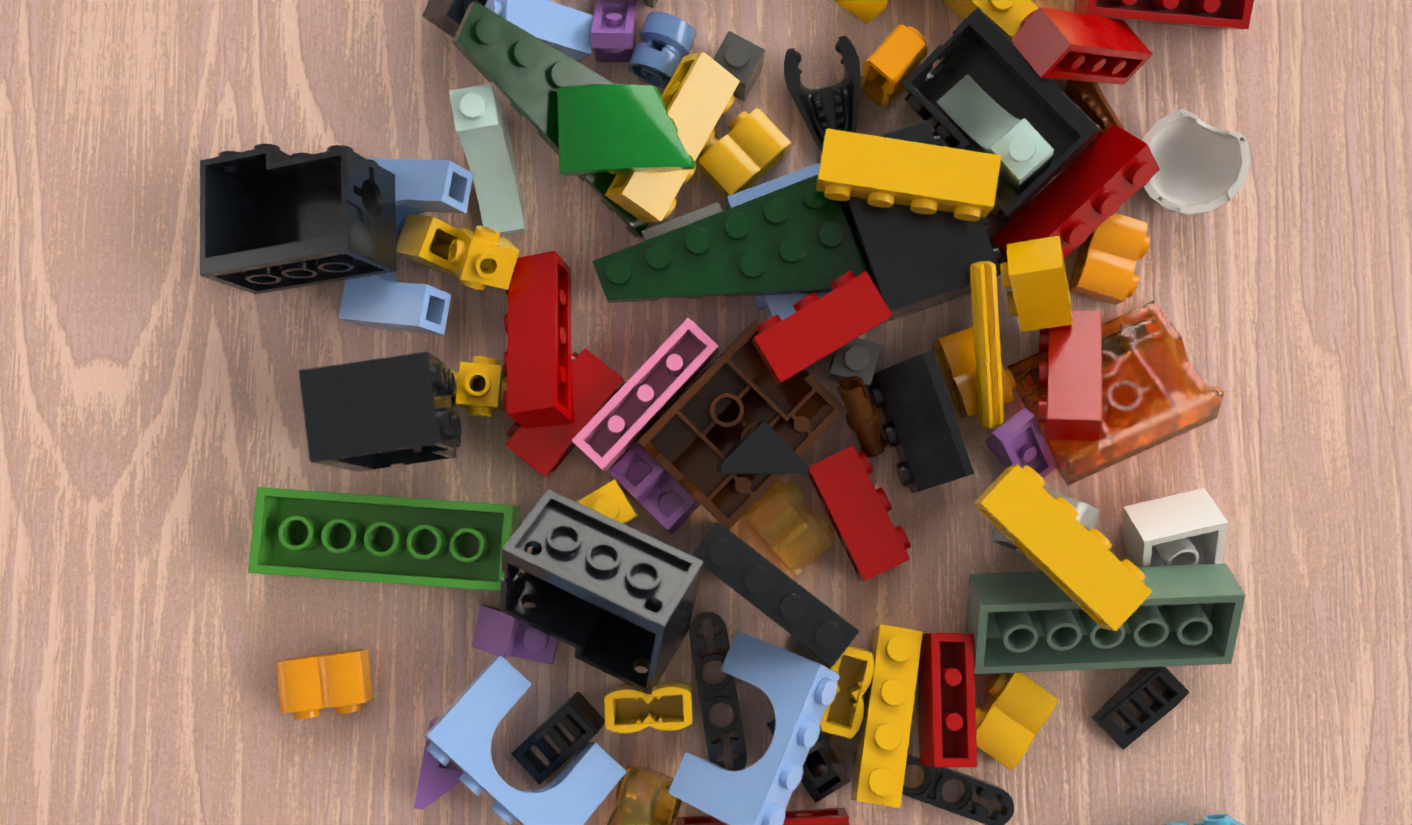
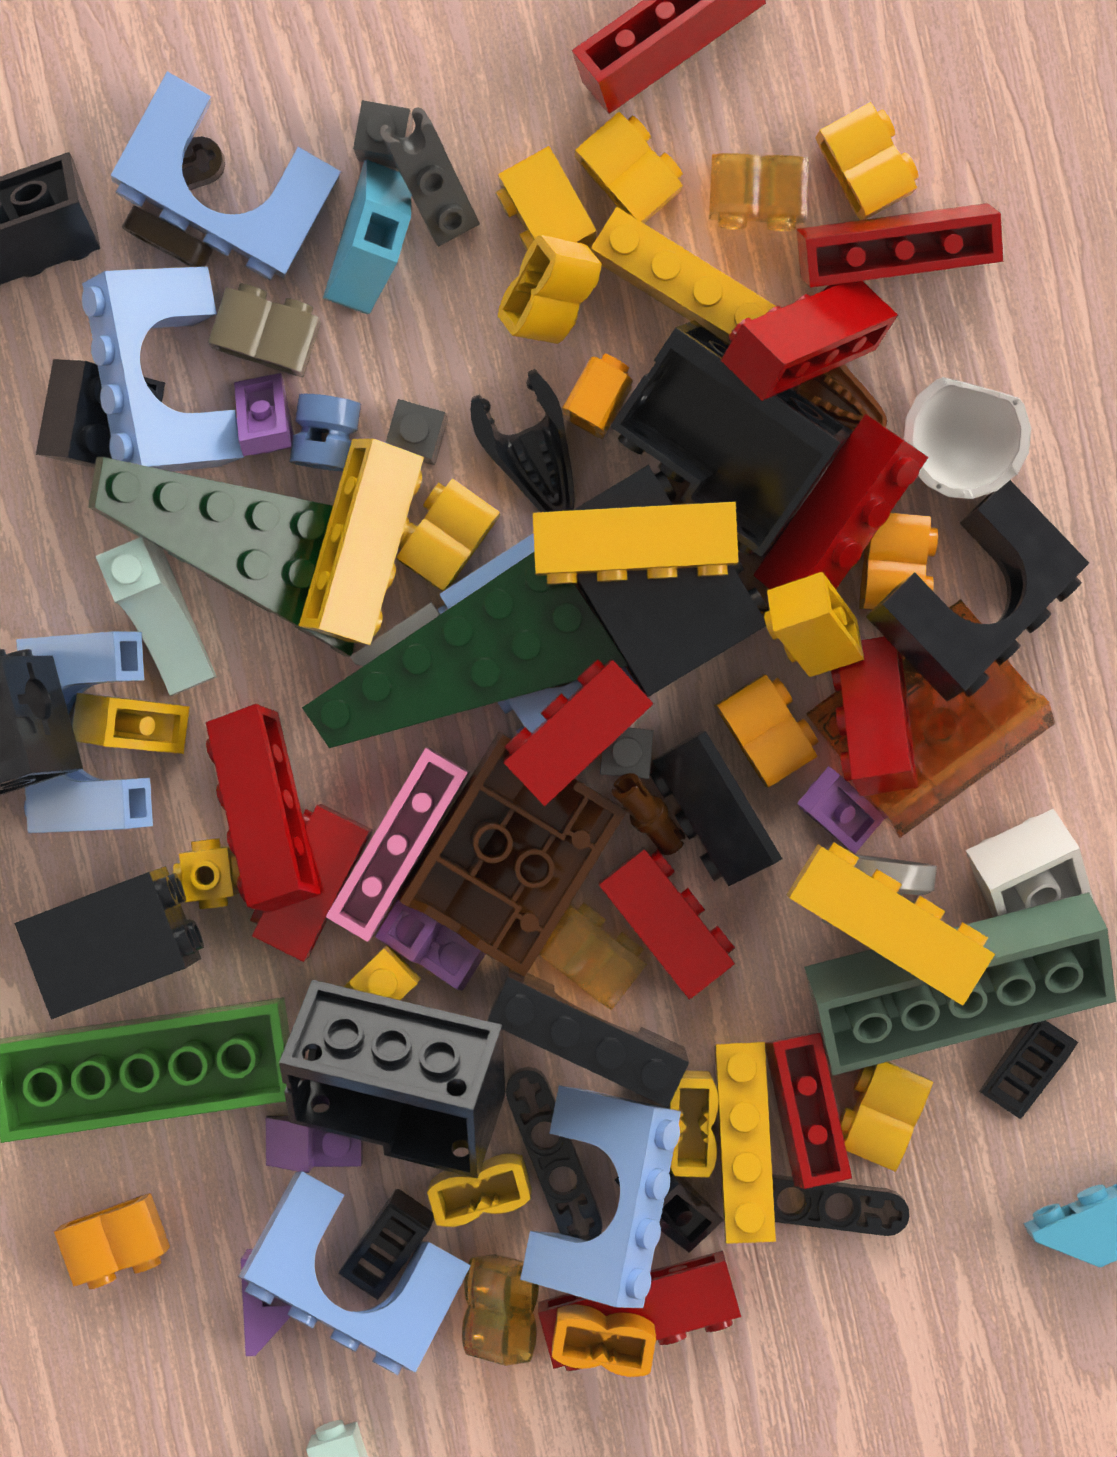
camera: 15 degrees left, 5 degrees up
(482, 258) = (177, 730): yellow brick -> none
(617, 131) = (297, 559): green slope -> none
(762, 453) = (541, 887): black slope -> none
(987, 344) = (769, 707): yellow axle -> none
(997, 132) = (741, 462): light aqua arch -> none
(1150, 330) = (1036, 568): none -> black arch

